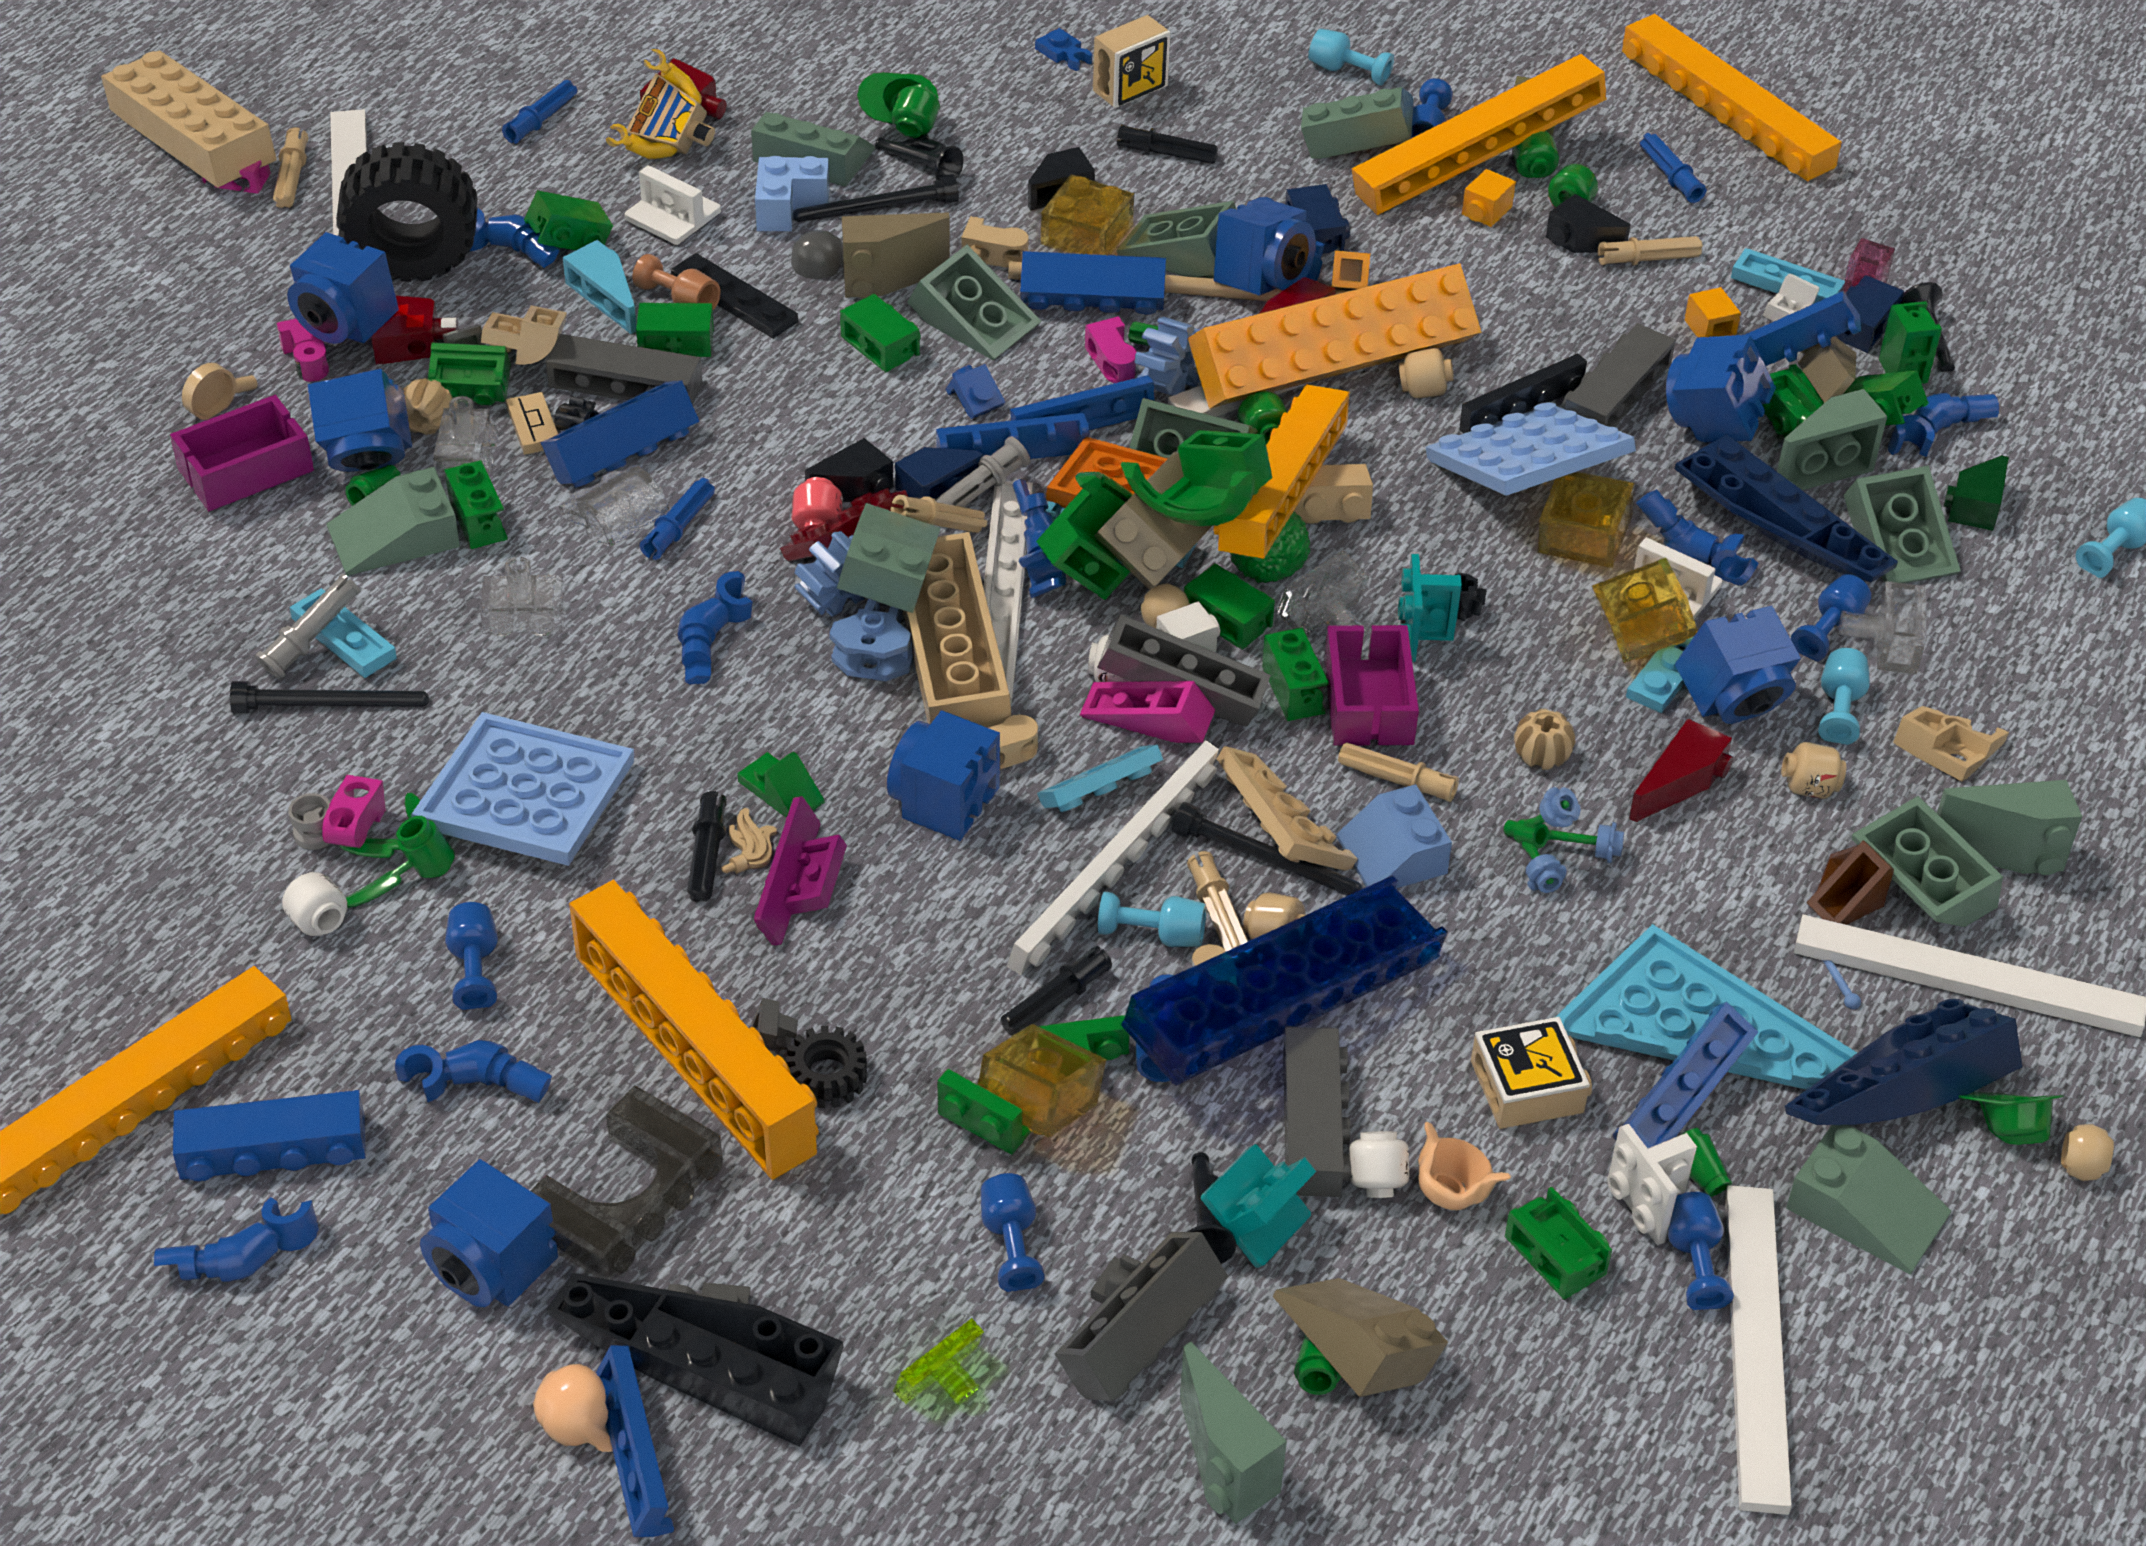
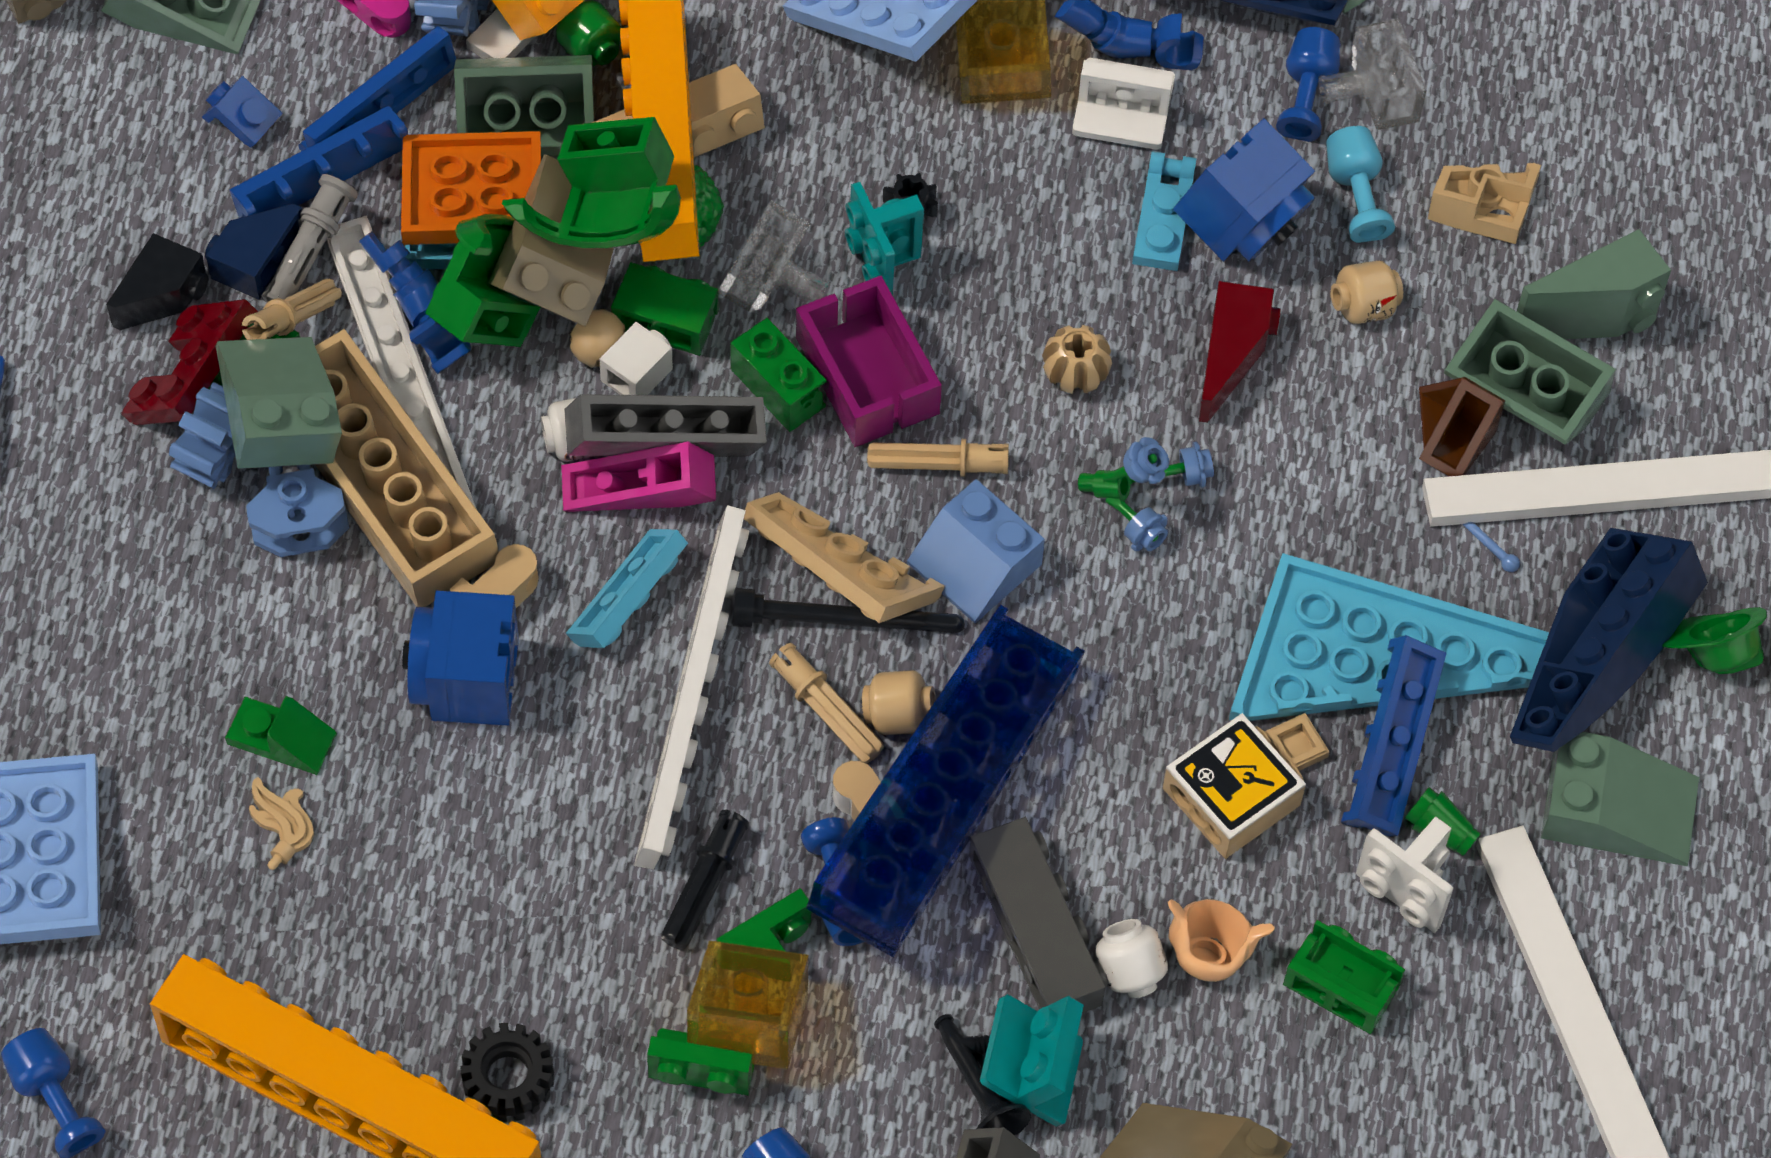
camera: 25 degrees left, 15 degrees up
(705, 619) = (85, 555): blue piece -> none
(708, 833) = (232, 826): black axle -> none
(773, 1026) = (425, 1051): dark grey tile -> none
(800, 872) = (363, 840): magenta bracket -> none
(816, 503) = (139, 343): coral head -> none
(879, 332) = (91, 67): green hinge -> none
(1178, 923) = (796, 742): medium azure piece -> none
(1603, 1065) = (1298, 742): none -> tan tile
(1645, 610) = (1119, 155): clear yellow brick -> none
(1696, 1230) = (1470, 908): blue piece -> none

